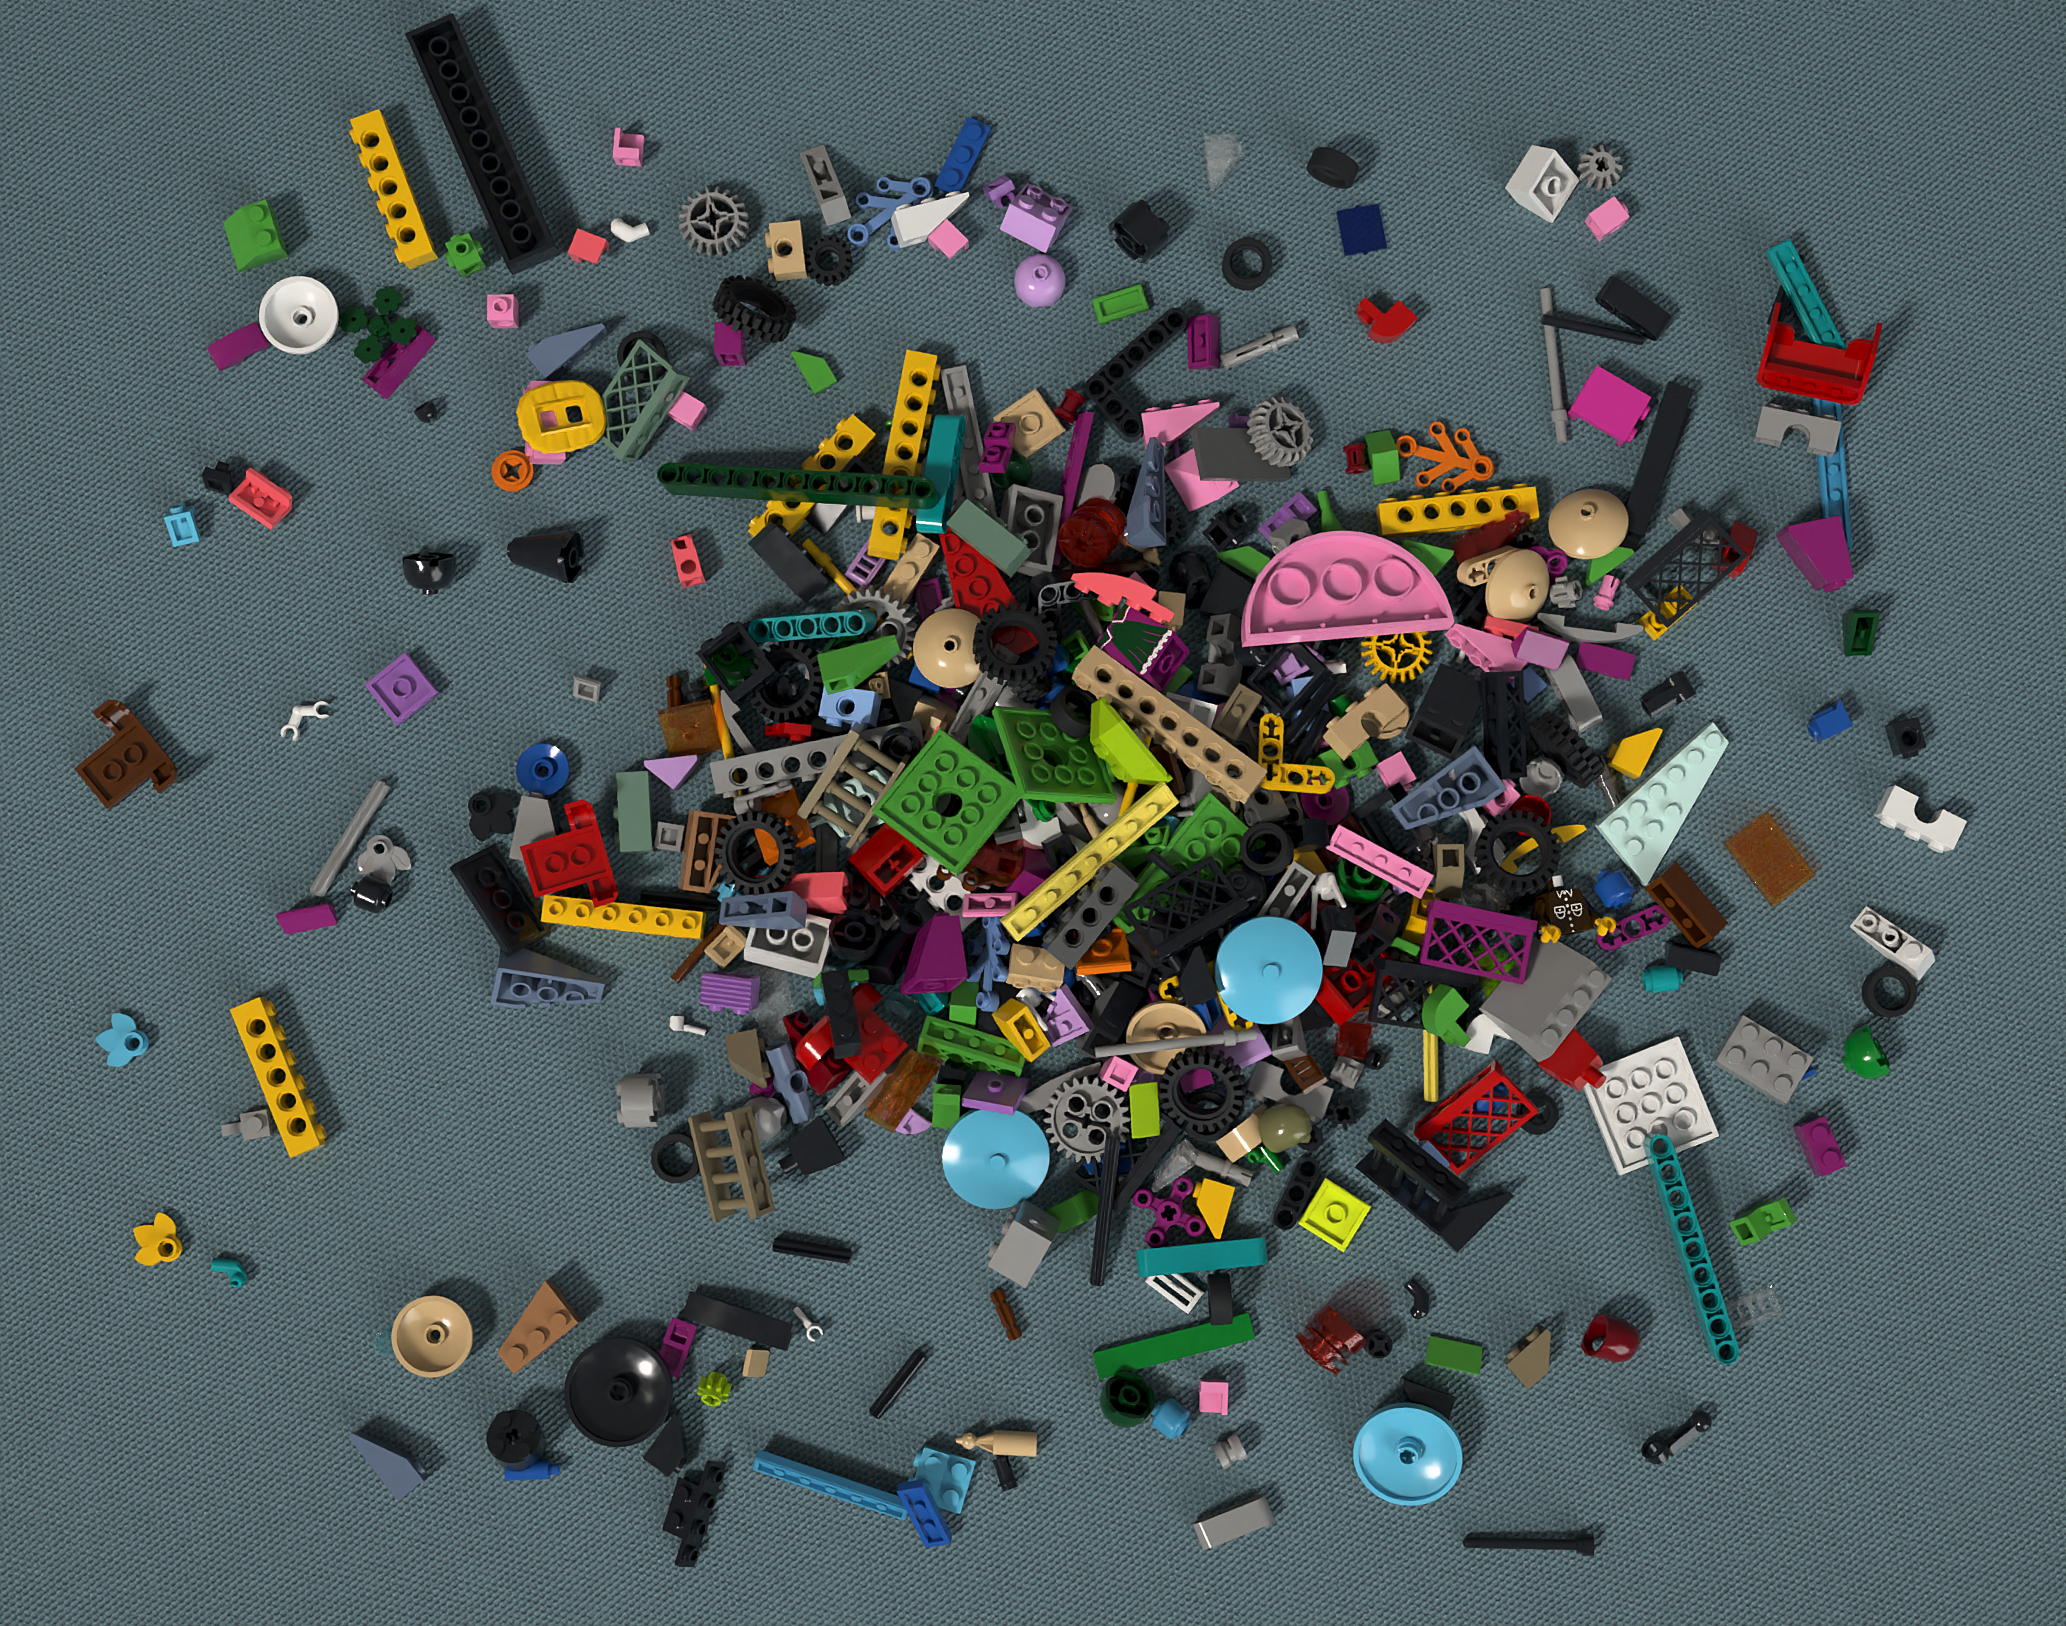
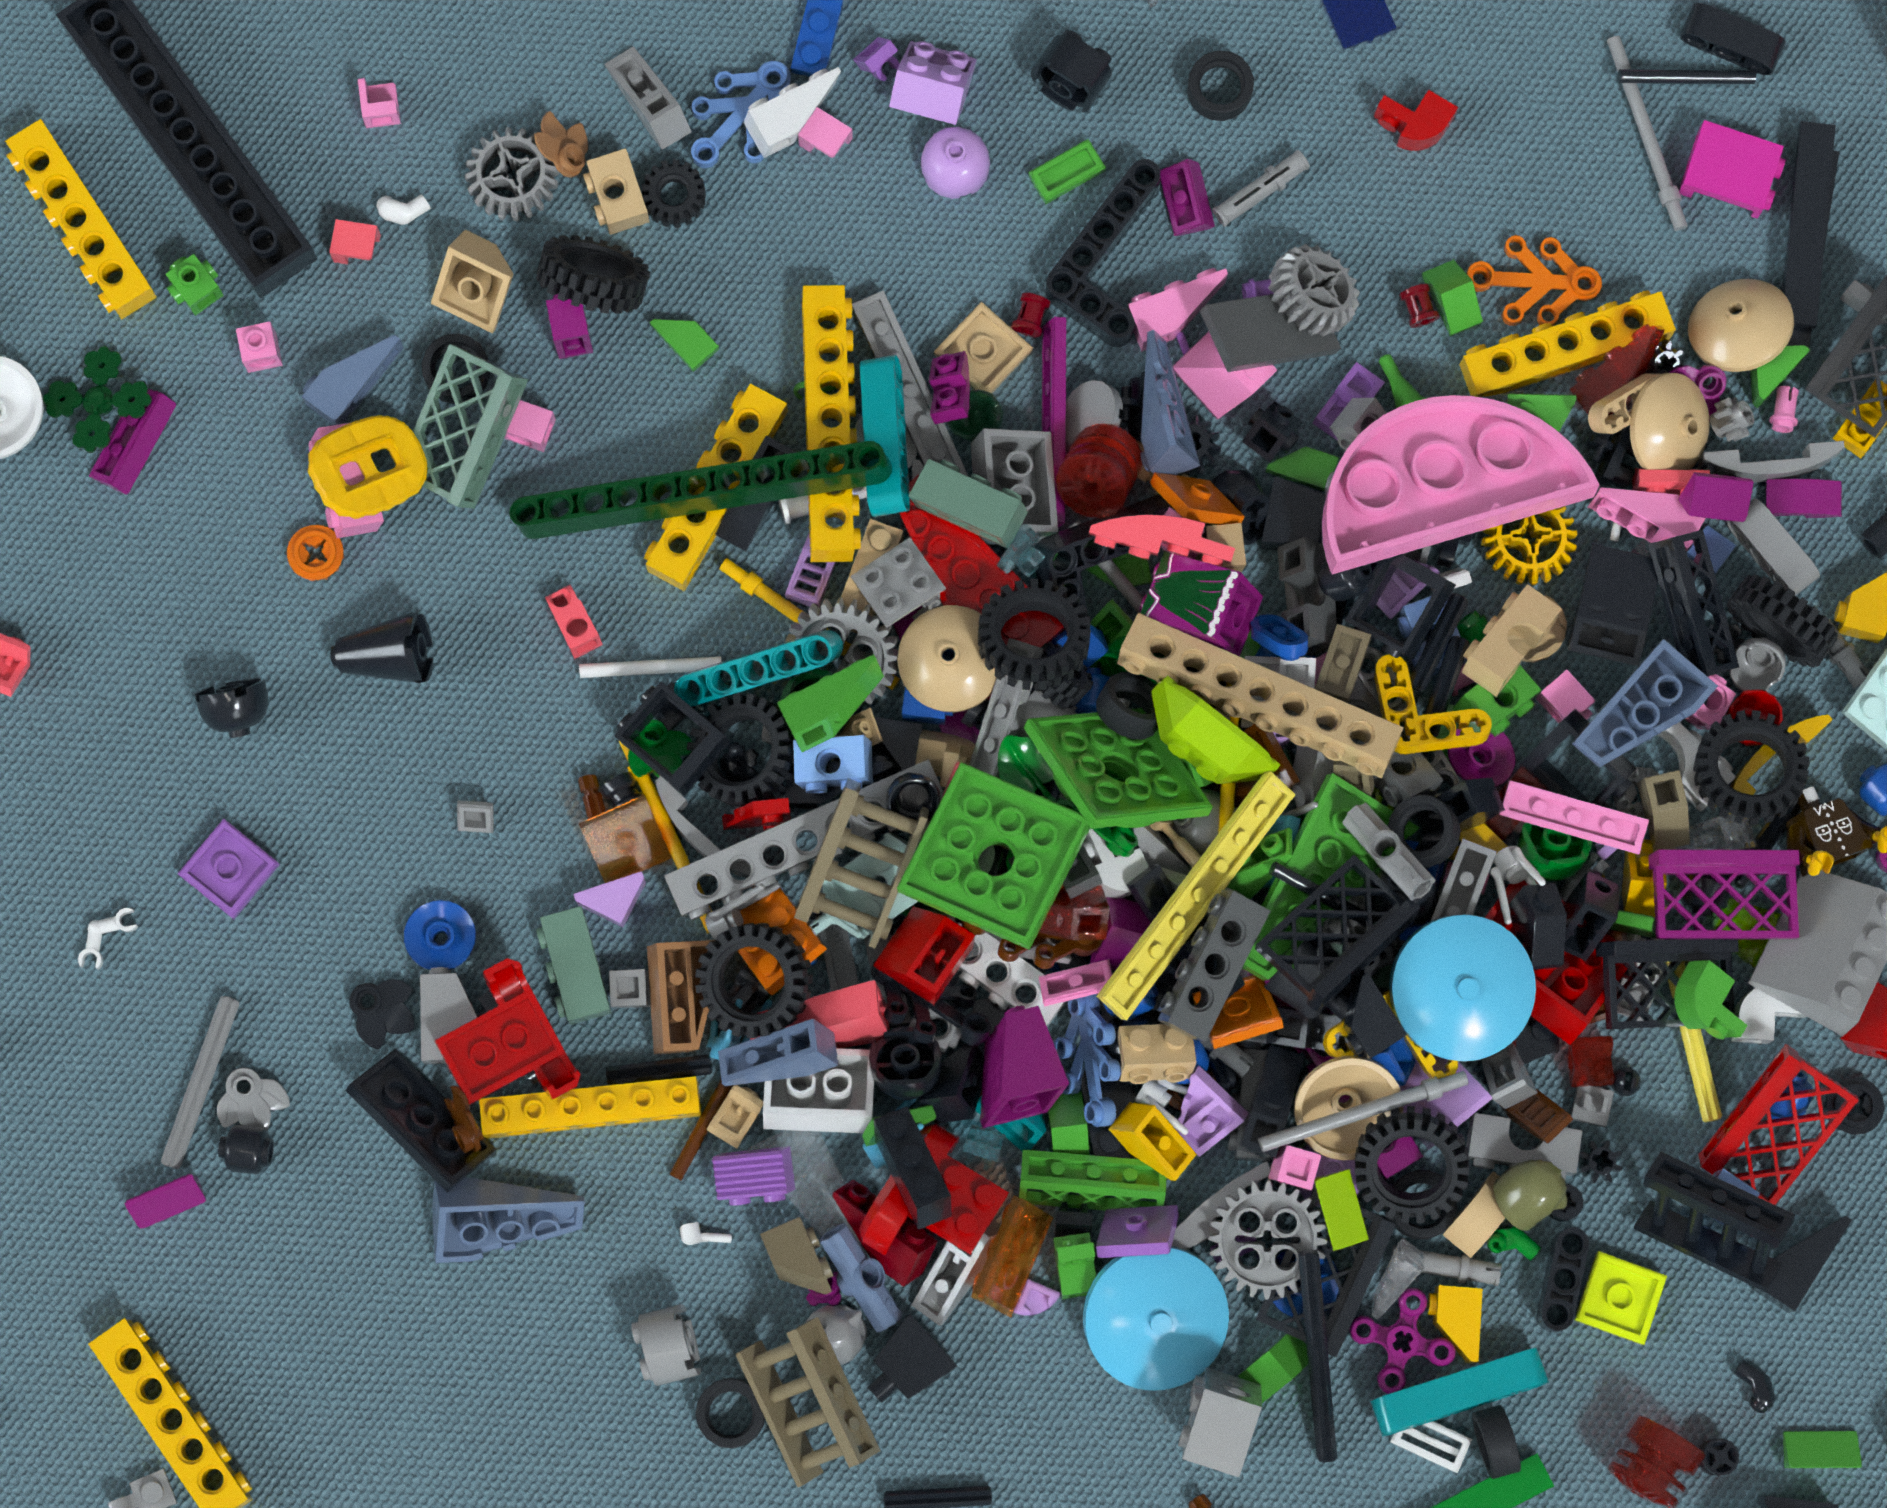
camera: 15 degrees left, 5 degrees down
(426, 410) = (183, 498): black hinge -> none
(530, 916) = (466, 1129): none -> reddish brown plate
(668, 294) = (473, 281): none -> tan slope
(733, 605) = (646, 667): none -> white bar
(753, 208) = (562, 146): none -> medium nougat plate
(789, 561) = (709, 592): black brick -> none
(926, 585) = (899, 583): none -> light grey hinge
(1021, 583) = (1022, 554): none -> clear light blue tile
(1157, 569) = (1196, 499): none -> orange plate
(1194, 683) = (1279, 636): none -> blue plate
(1242, 871) = (1401, 864): none -> light grey piece

